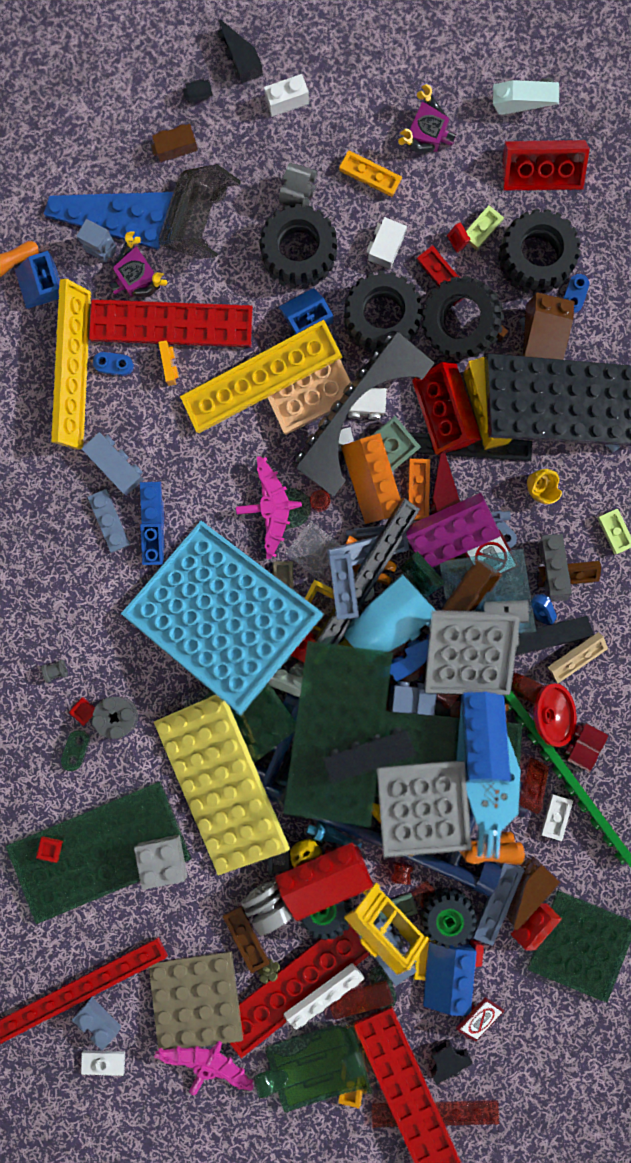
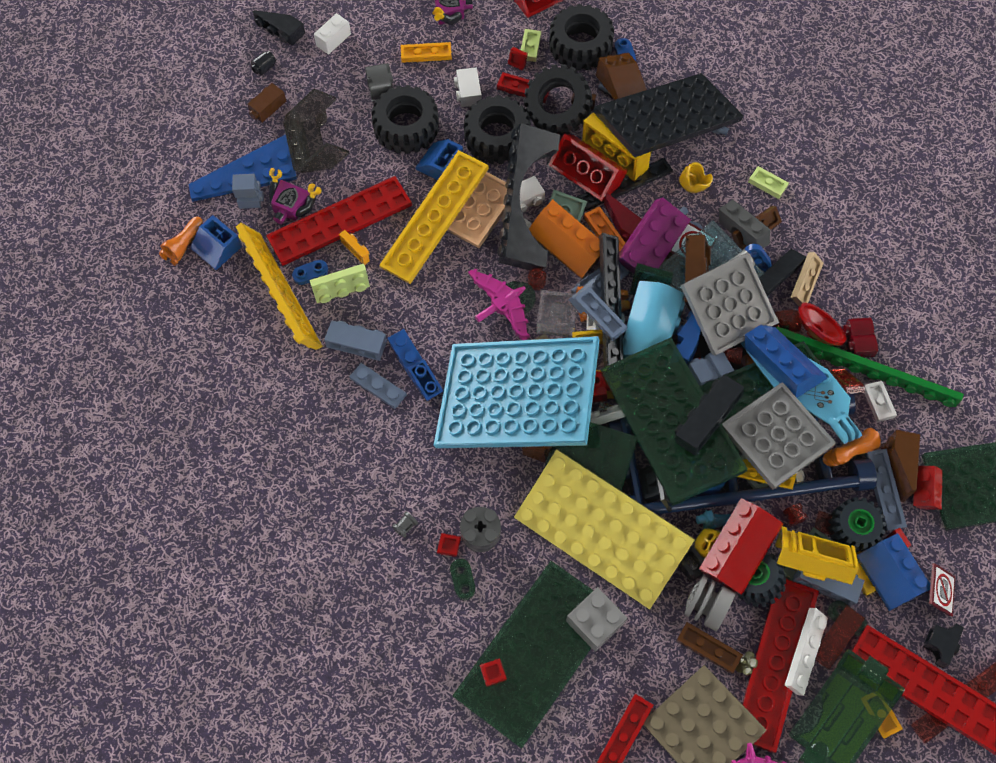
camera: 40 degrees left, 20 degrees down
(129, 398) = (340, 283): none -> yellowish green plate

